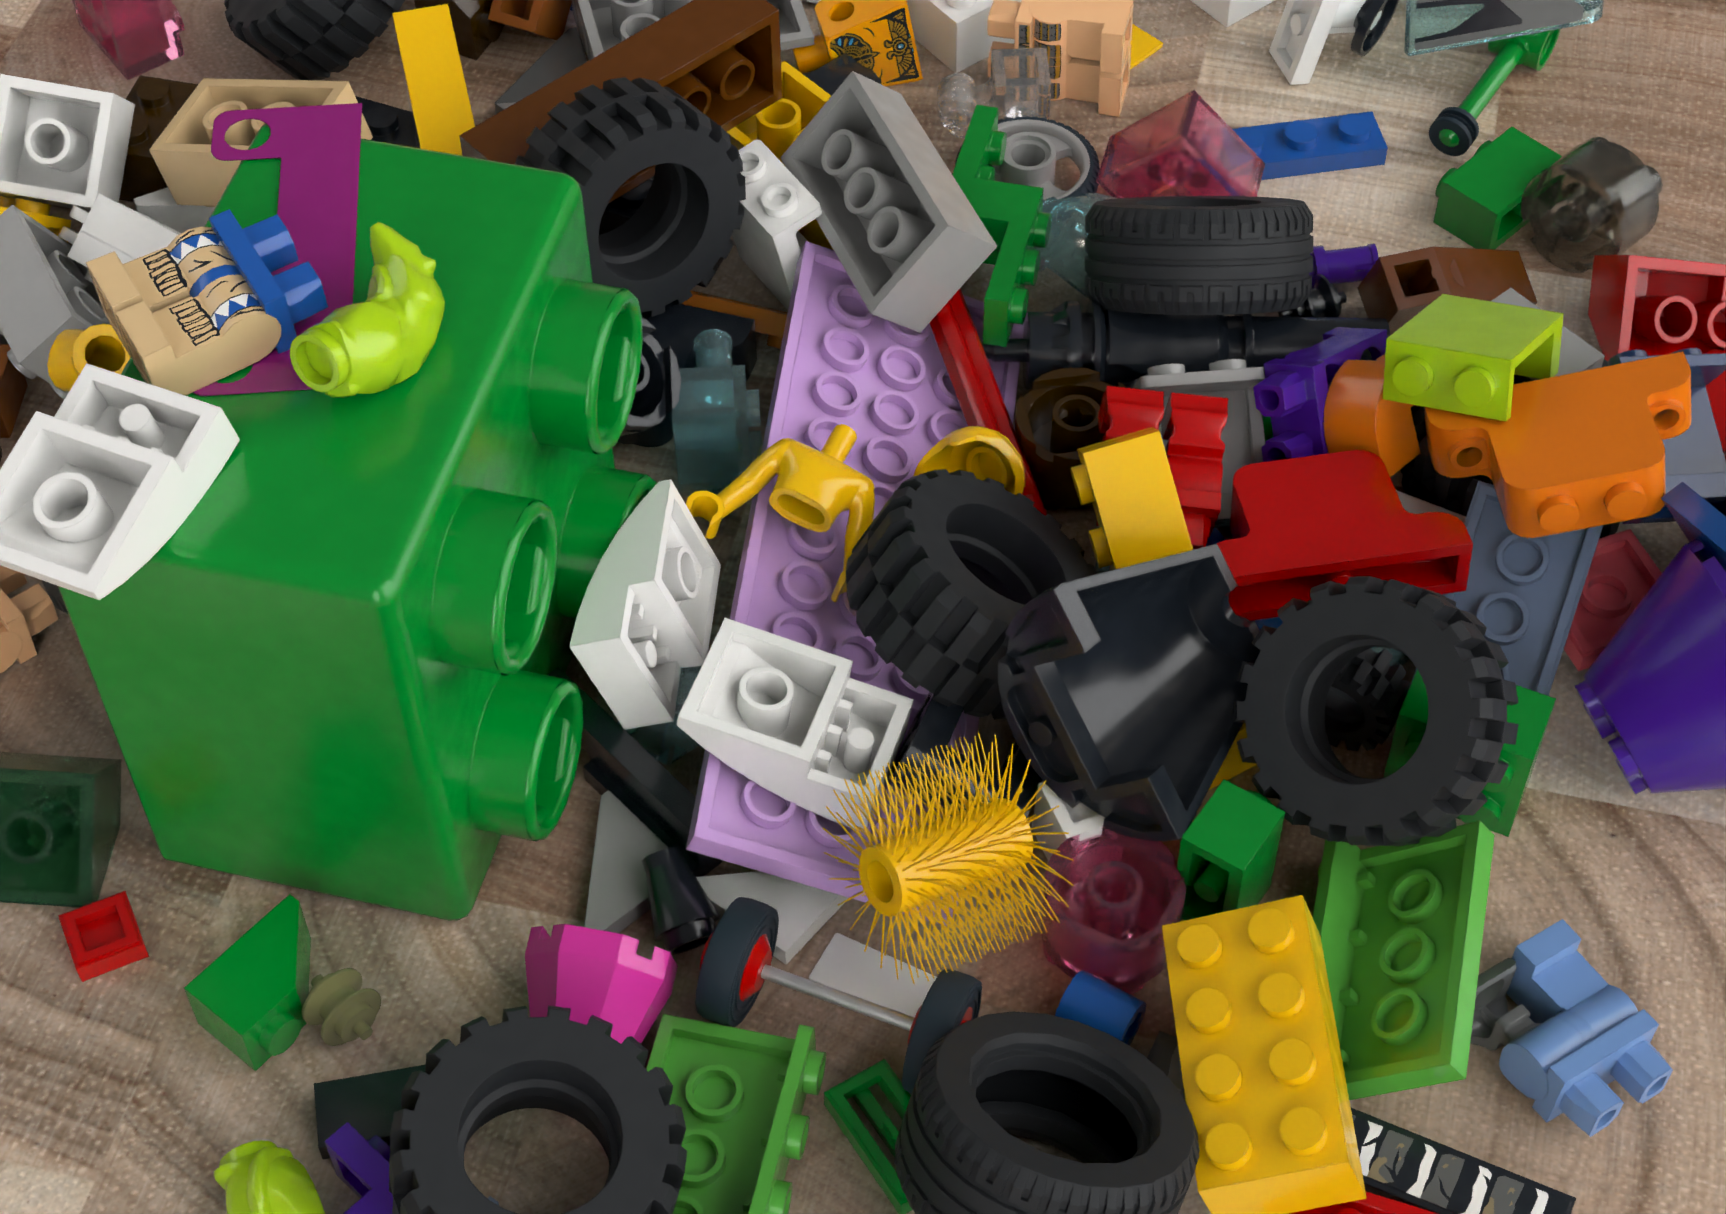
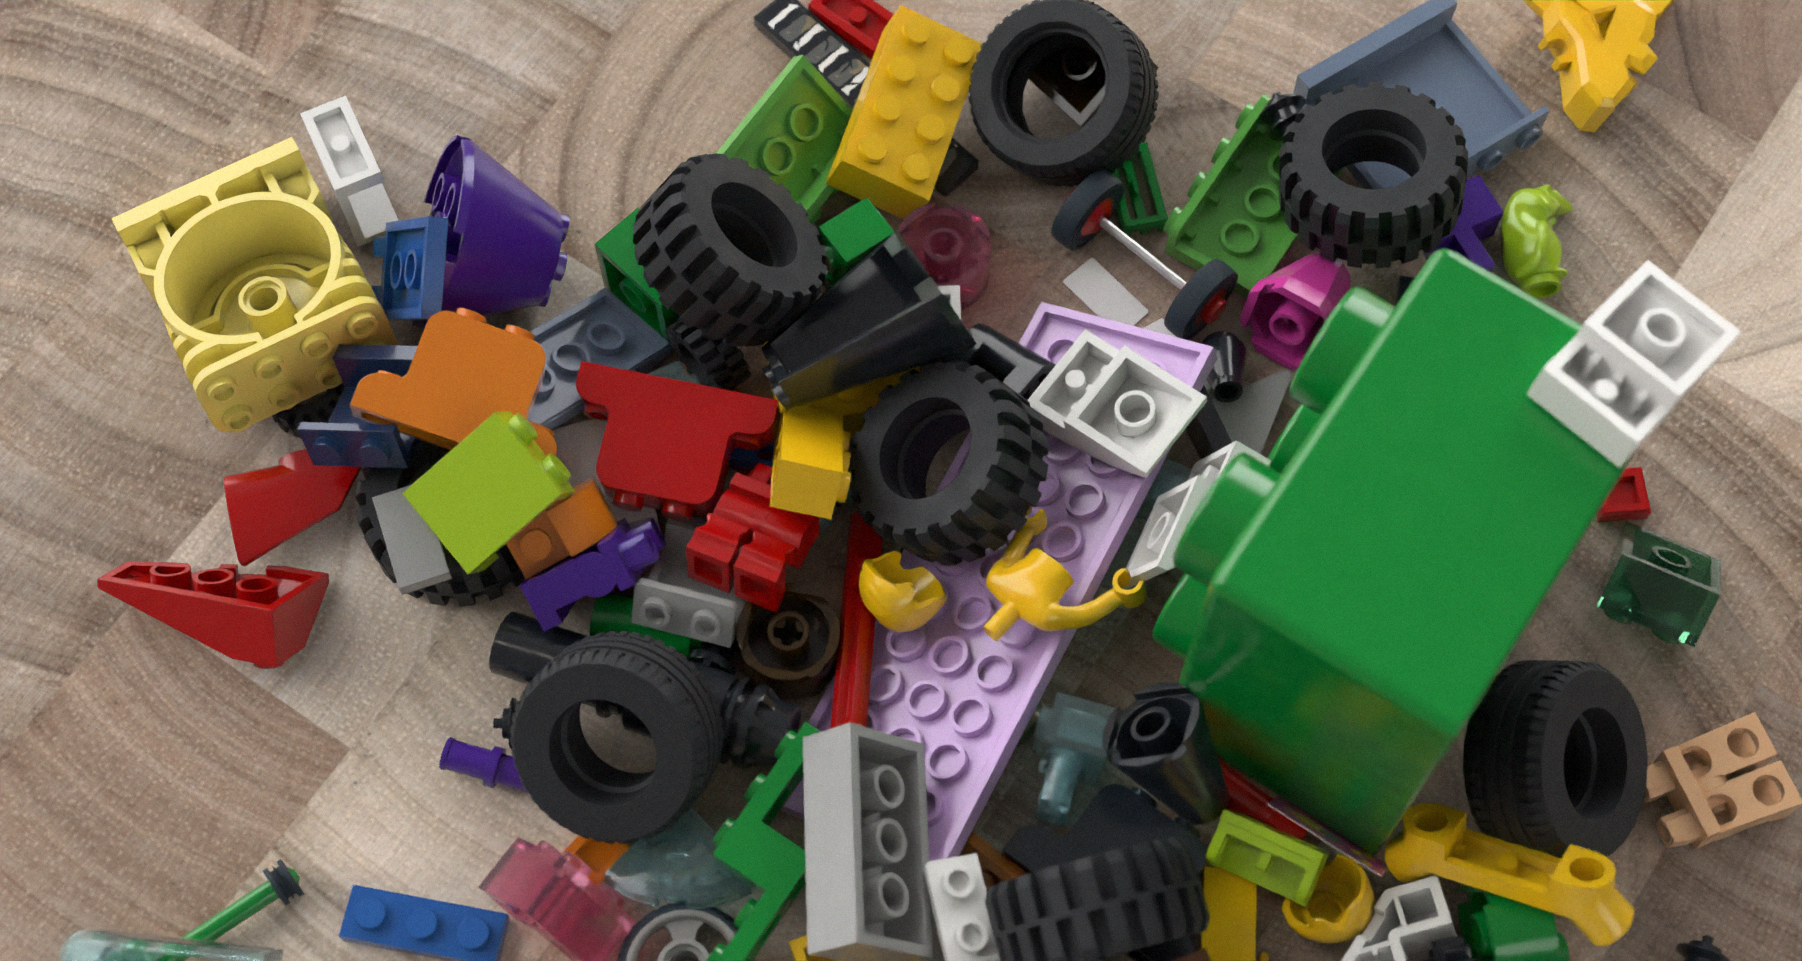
camera: 160 degrees left, 15 degrees up
(208, 301) = (1540, 500): hips -> none
(315, 204) = (1443, 561): magenta piece -> none
(376, 340) = (1420, 413): lime animal -> none
(947, 856) = (1054, 263): yellow piece -> none
(1102, 1007) = (982, 201): blue gear -> none
(1411, 280) = (412, 690): reddish brown slope -> none
(1485, 194) = (293, 792): green brick -> none
(1566, 1032) = (695, 87): medium blue hips -> none
(1591, 204) = (239, 722): clear smoke brick -> none

